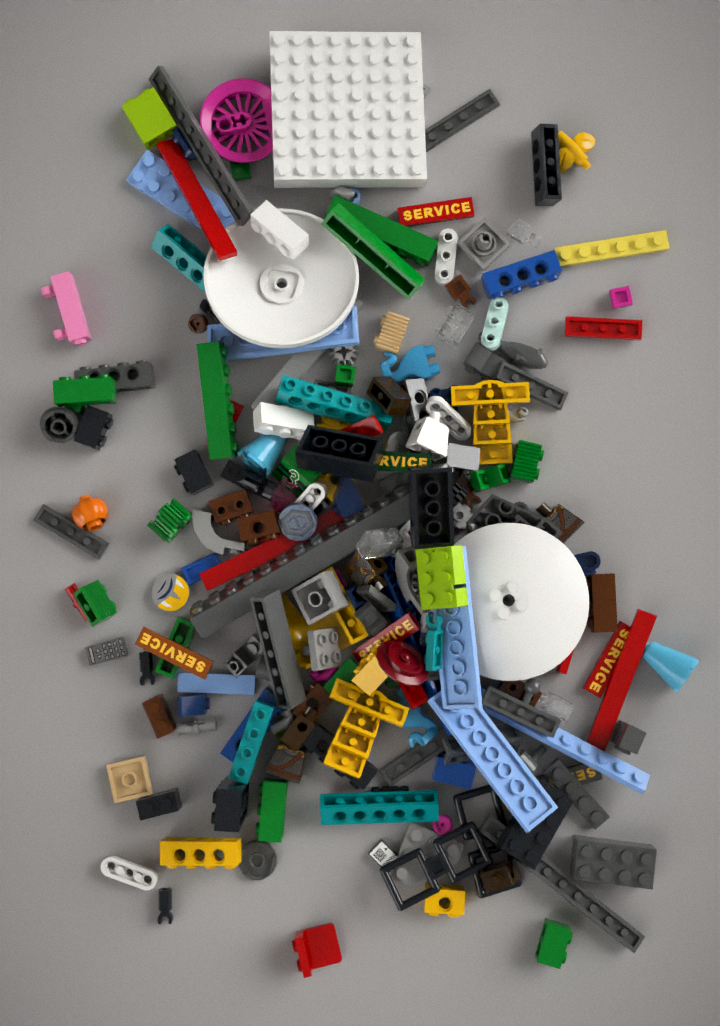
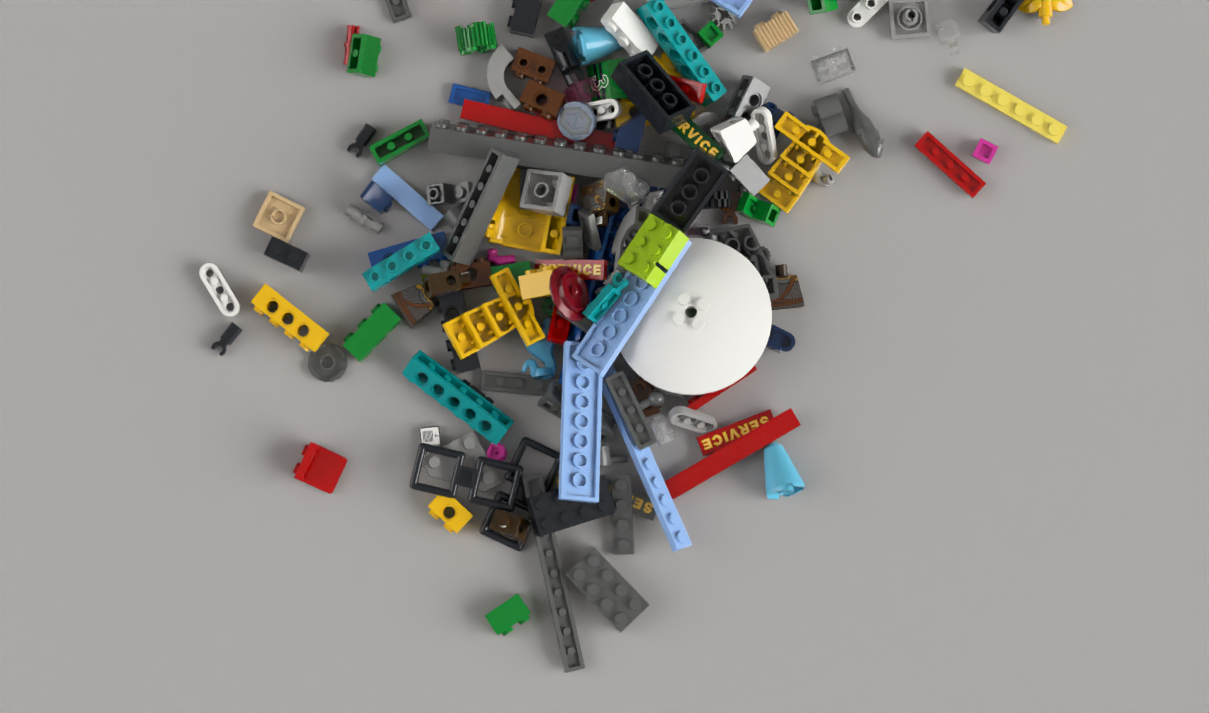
camera: 35 degrees right, 0 degrees up
(106, 651) = (341, 101): tile -> none
(159, 716) = (342, 186): reddish brown brick -> none
(170, 592) = (429, 96): tile -> none
(174, 652) = (396, 144): dark orange tile -> none
(231, 805) = (347, 295): black brick -> none
(323, 648) = (515, 235): light grey plate -> none
(389, 395) = (730, 78): dark brown brick -> none
(412, 365) = (770, 70): dark azure hips -> none
(456, 774) = (540, 420): blue brick -> none
(459, 290) = (858, 39): reddish brown plate -> none
(461, 515) = (710, 219): light grey bracket -> none
(494, 330) = (861, 96): light aqua plate -> none
(526, 461) = (798, 221): green brick -> none
(538, 388) = (855, 166): dark grey tile -> none
(547, 261) = (929, 65): blue brick -> none
(571, 679) = (692, 419): none -> light grey plate
(602, 603) = (766, 381): reddish brown brick -> none
(628, 738) = (698, 501): dark grey brick -> none

